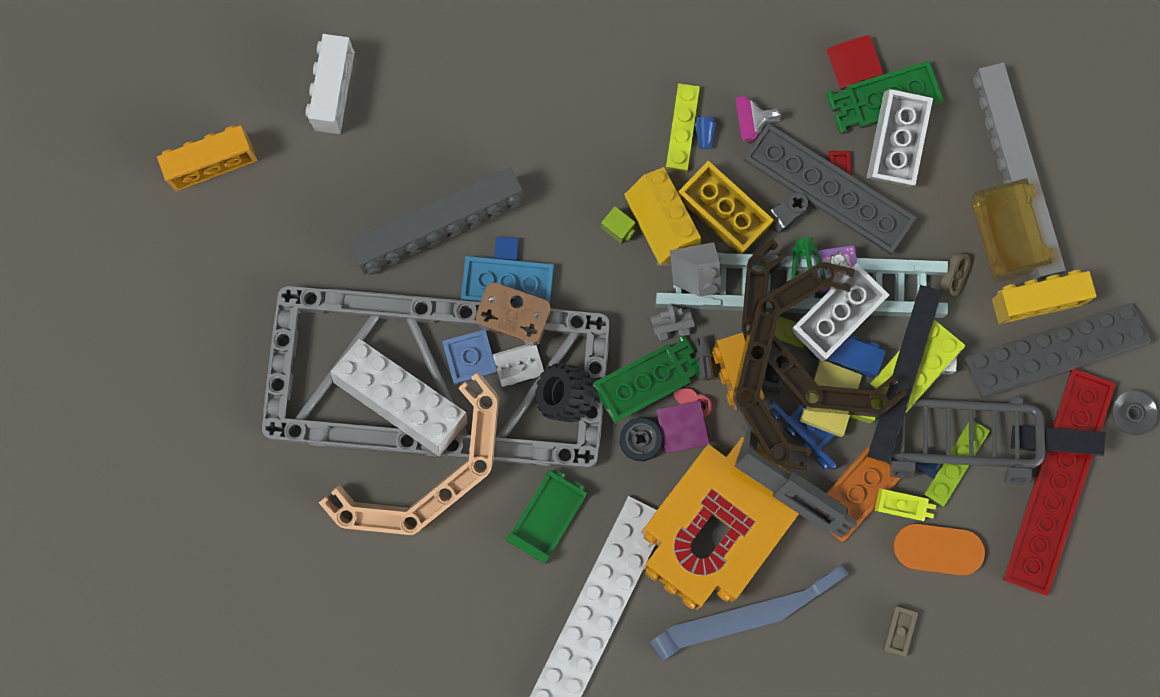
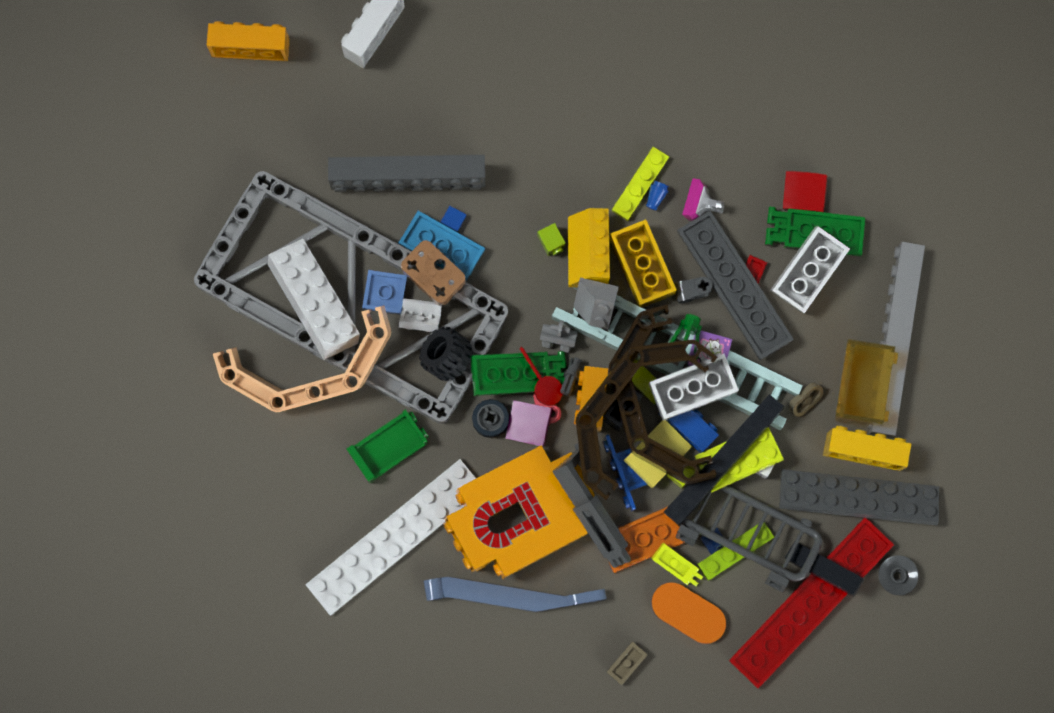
camera: 20 degrees right, 0 degrees up
(685, 381) = (547, 388): none -> red piece

